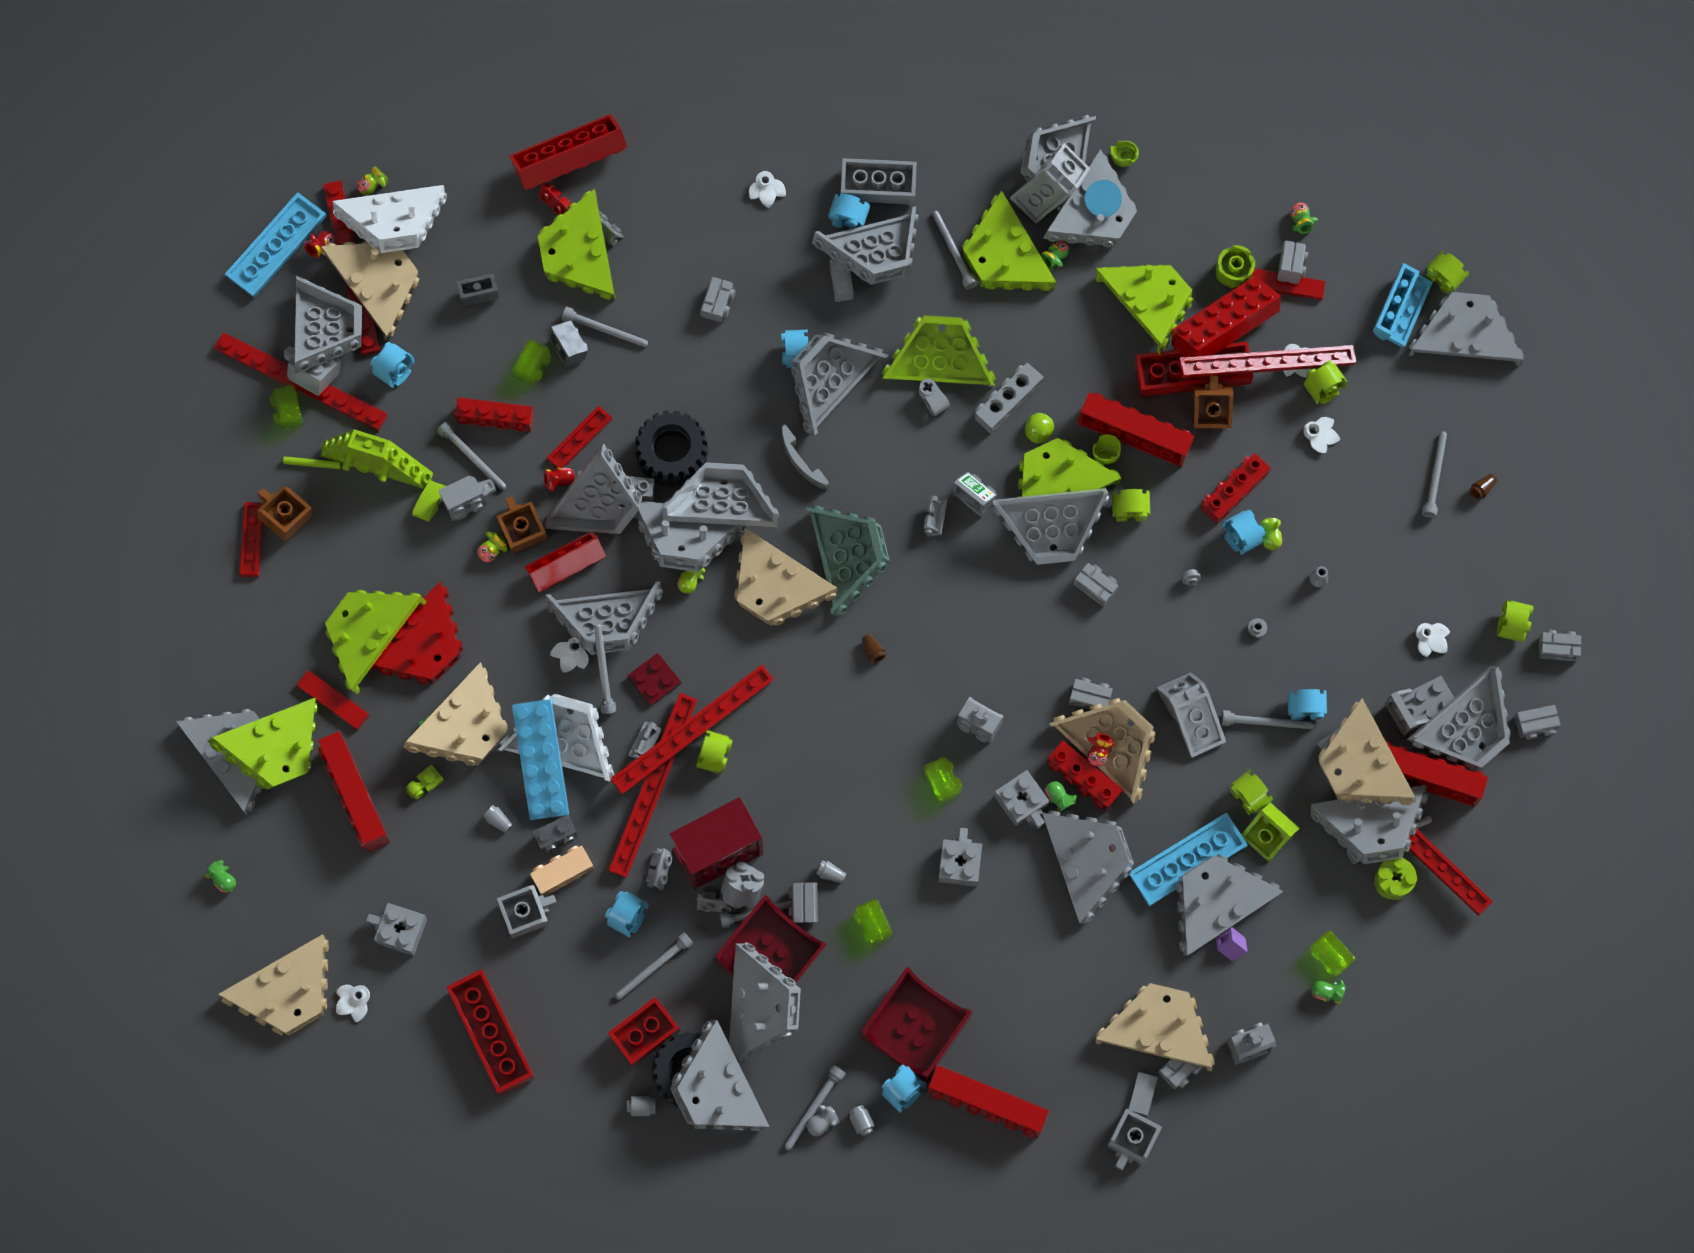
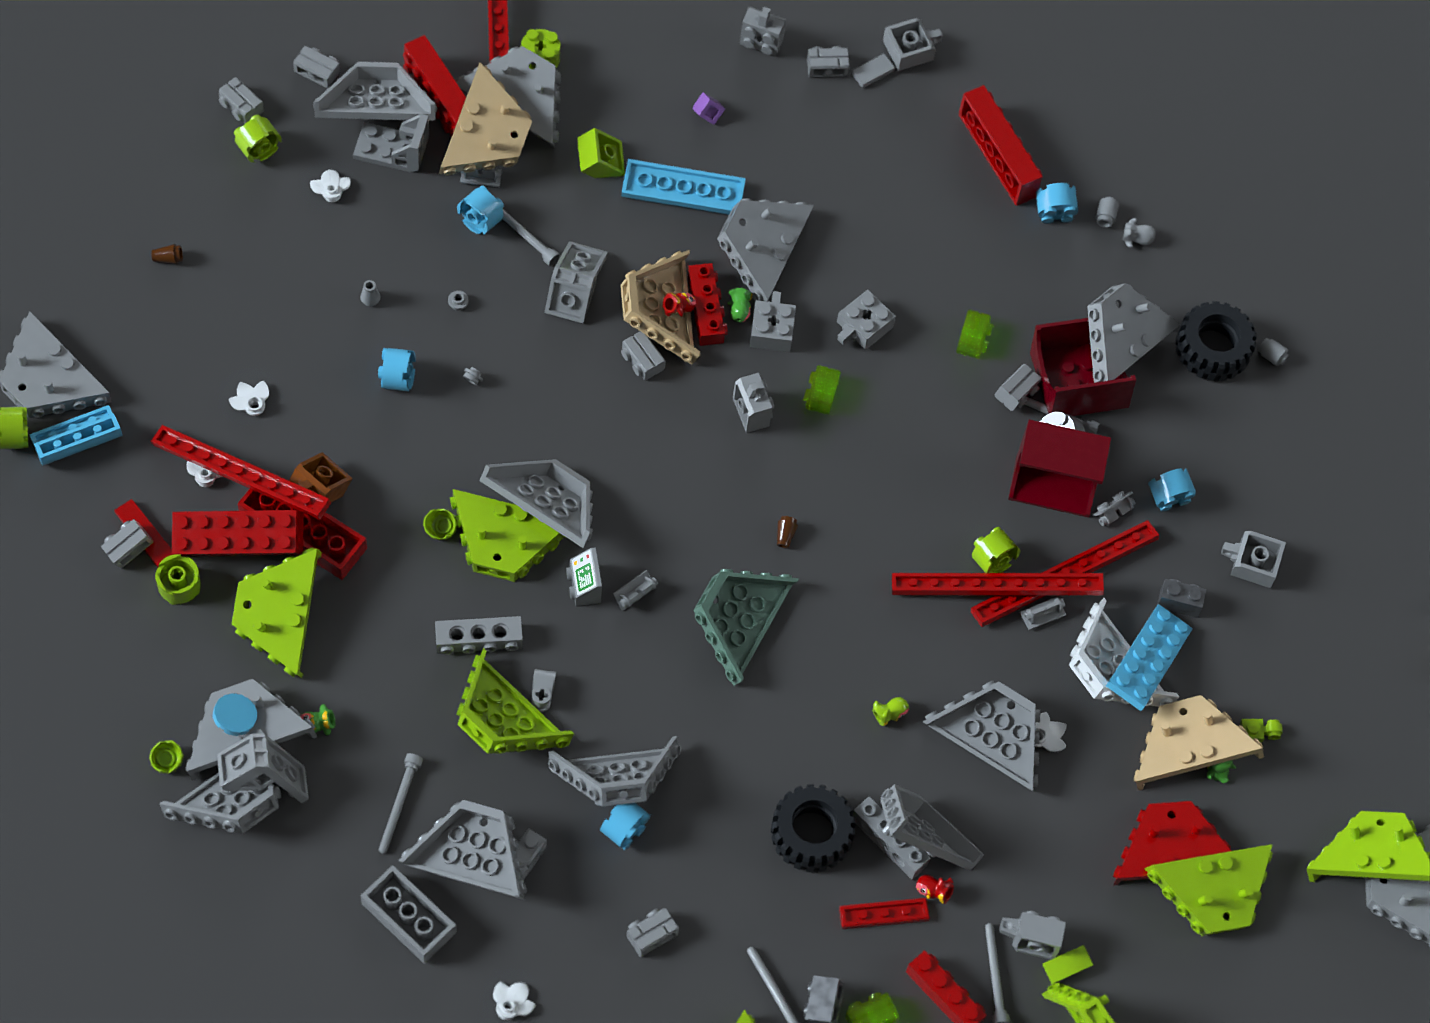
camera: 145 degrees left, 10 degrees down
(333, 700) = (1289, 863): red tile -> none
(352, 788) = (1332, 762): red brick -> none
(394, 918) = (1373, 628): light grey hinge -> none
(489, 550) = (1046, 875): animal -> none
(490, 1032) = (1356, 491): red brick -> none
(497, 819) = (1220, 651): light grey cone -> none
(520, 515) = (1002, 882): dark orange hinge -> none
(561, 870) = (1198, 567): light nougat brick -> none
(565, 561) = (990, 808): red brick -> none
(608, 705) = (1050, 665): light grey piece -> none
(643, 1032) = (1229, 396): red brick -> none
(654, 679) = (992, 657): dark red plate -> none
(682, 943) = (1140, 439): light grey piece -> none
(699, 540) = (863, 743): light grey piece -> none
(708, 501) = (811, 739): light grey piece -> none
(718, 1083) = (1209, 305): light grey piece -> none
(777, 580) = (822, 643): tan piece -> none
(815, 477) = (706, 706): light grey slope -> none
(830, 872) = (976, 397): light grey cone -> none
(835, 1075) = (1099, 257): light grey piece -> none
(848, 211) = (463, 906): medium azure brick -> none
(915, 1025) = (1007, 233): dark red container -> none
(1008, 252) = (355, 761): lime piece -> none
(1039, 428) = (476, 592): lime hair -> none
(1096, 584) = (555, 432): light grey brick -> none
(1131, 504) = (465, 462): lime brick -> none
(1136, 429) = (402, 516): red brick -> none
(1160, 1027) = (824, 93): tan piece -> none
(1219, 901) = (678, 132): light grey piece -> none
(1235, 488) = (365, 411): red brick -> none
(1251, 792) = (590, 186): lime brick -> none
(1273, 538) = (372, 355): lime animal -> none
(1301, 216) = (76, 575): bright green animal -> none
(1325, 382) = (207, 425): lime brick -> none
(1327, 992) = (670, 25): bright green animal -> none
(1332, 953) = (638, 44): clear neon green brick -> none
(1430, 509) = (227, 273): light grey piece -> none

